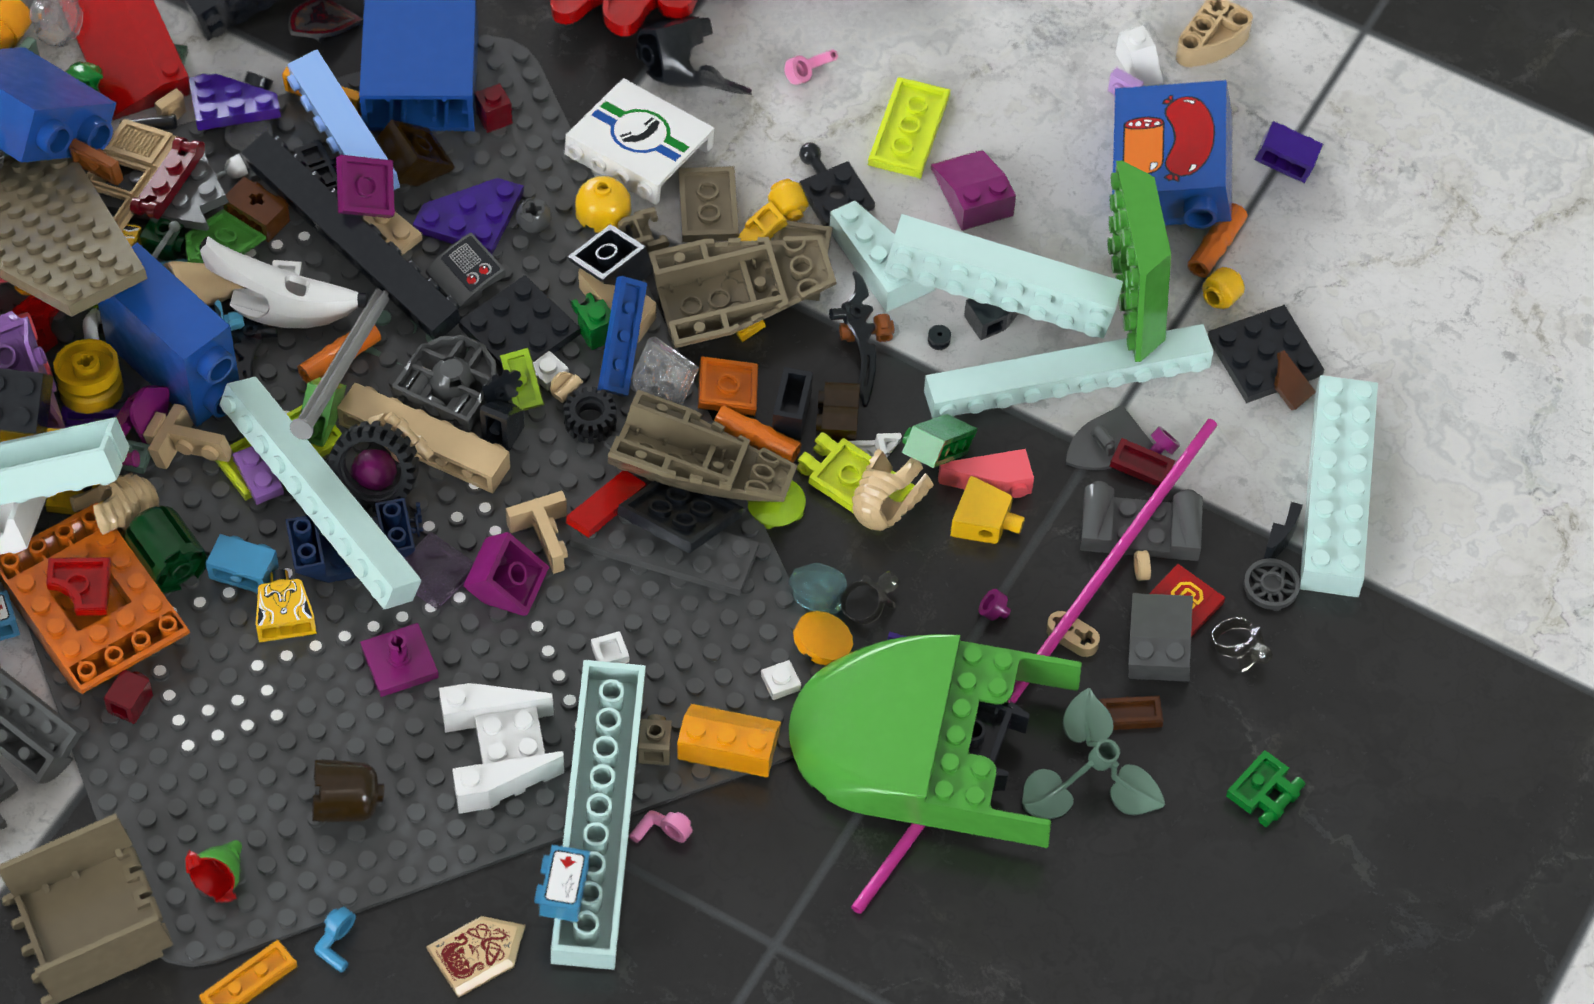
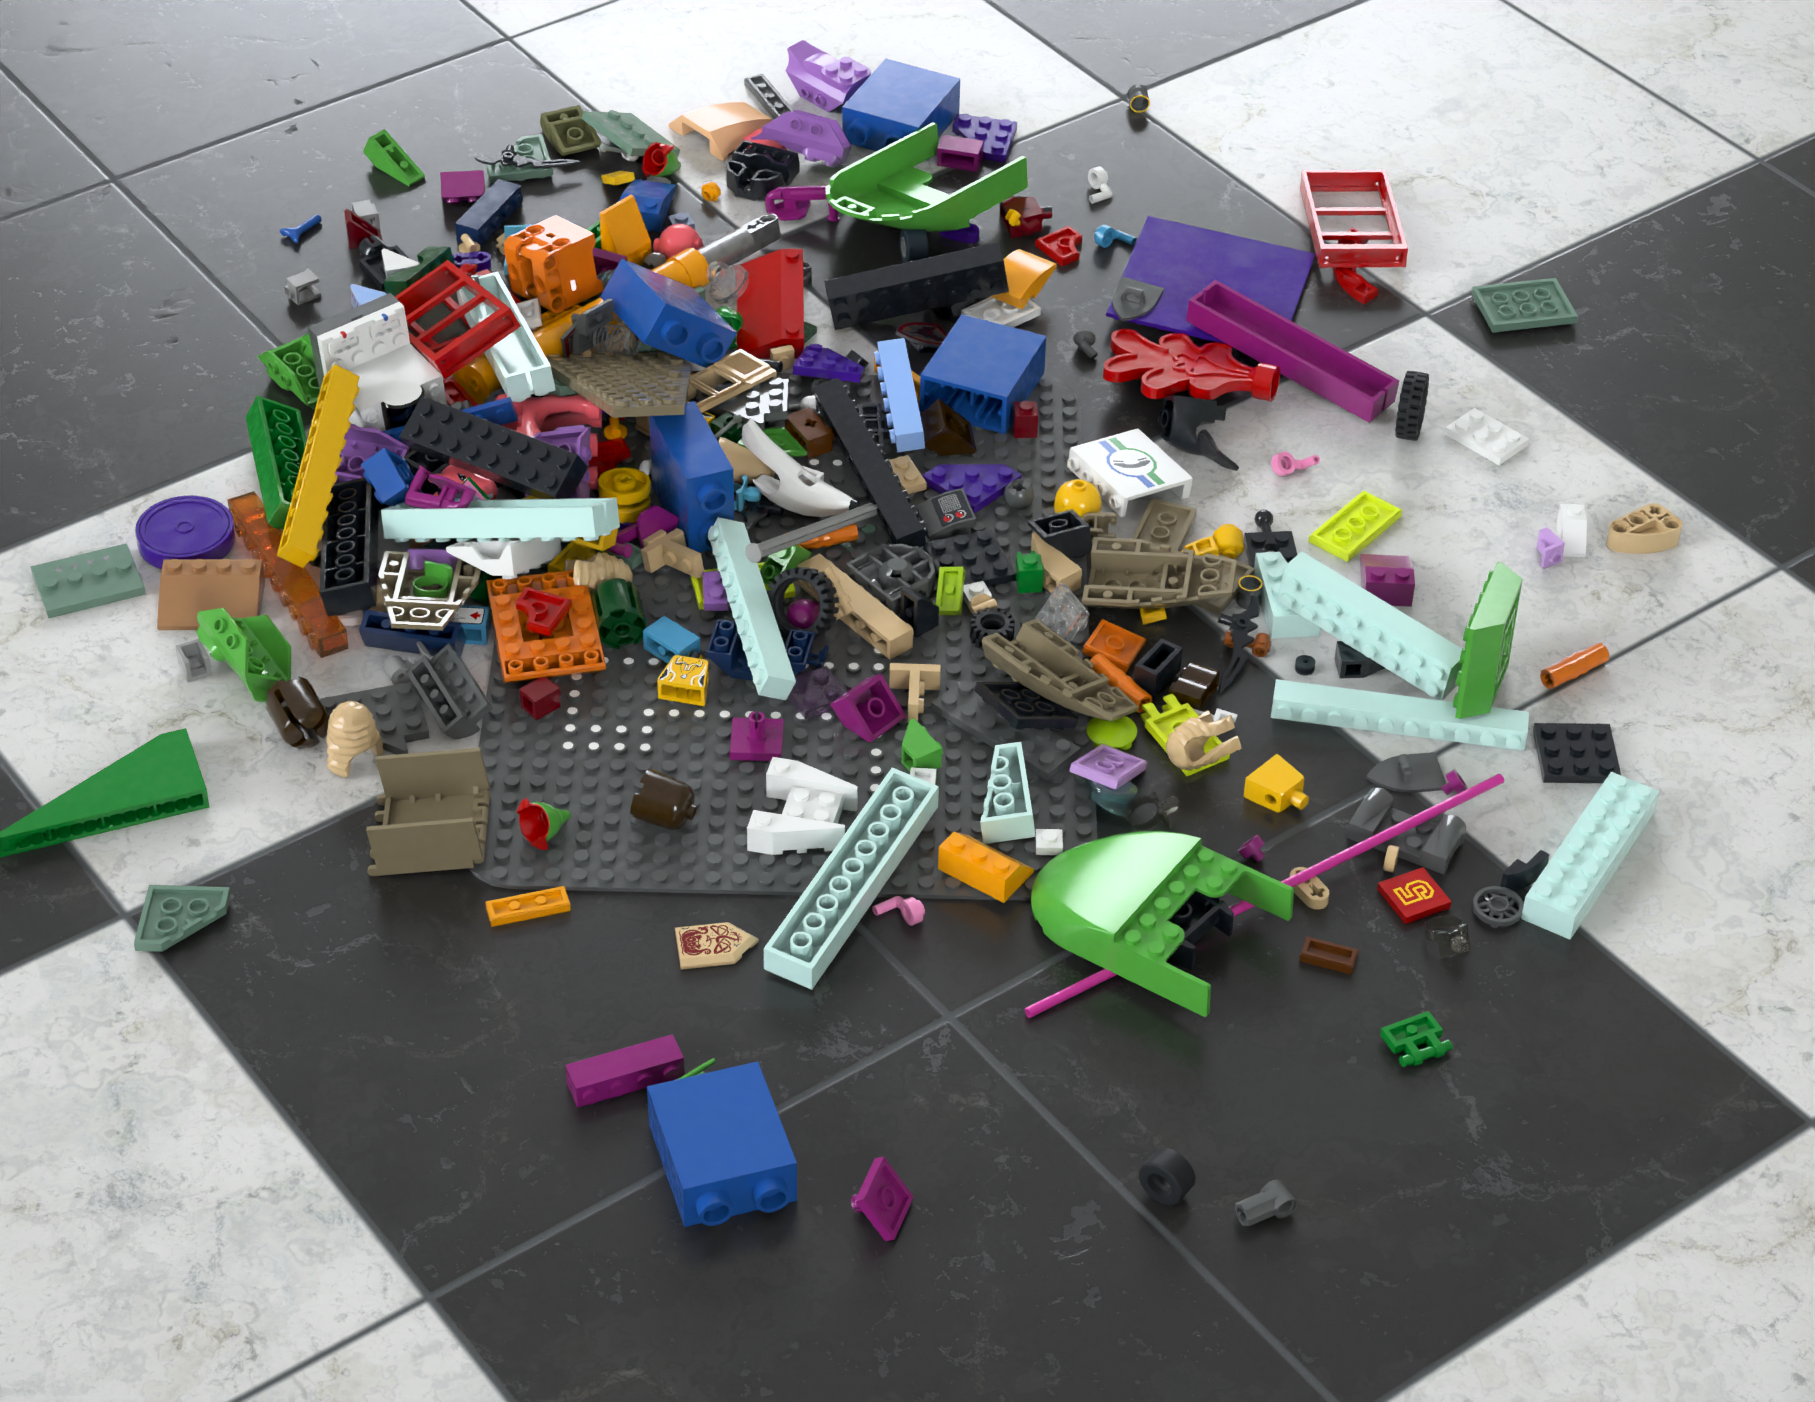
camera: 25 degrees right, 15 degrees down
(96, 162) = (702, 365): dark orange plate -> none
(168, 178) = (750, 390): dark red plate -> none
(337, 926) = (613, 891): dark azure plate -> none
(365, 186) = (892, 430): magenta tile -> none
(502, 387) = (931, 586): black piece -> none
(564, 883) = (795, 903): brick -> none
(588, 611) = (919, 748): none -> bright green slope
(604, 503) = (964, 684): red tile -> none
(622, 336) = (1042, 580): blue plate -> none
(655, 740) = (925, 842): dark tan brick -> none
(720, 646) = (1008, 801): none -> light aqua wedge
(799, 556) = (1108, 766): none -> lavender tile
(822, 637) = (1097, 822): light orange tile -> none
(842, 260) = (1248, 586): none -> dark grey wheel
(938, 440) = (1259, 716): green brick -> none
(1004, 470) = (1309, 761): coral slope -> none
(1091, 722) = (1287, 948): sand green plant -> none
(1141, 462) = (1425, 790): dark red tile -> none
(1160, 637) = (1378, 910): dark grey slope -> none
(1182, 141) = (1568, 590): blue brick -> none
(1223, 288) = (1561, 696): yellow head -> none
(1288, 151) = (1667, 623): dark purple brick -> none
(1291, 382) = (1585, 774): reddish brown tile -> none

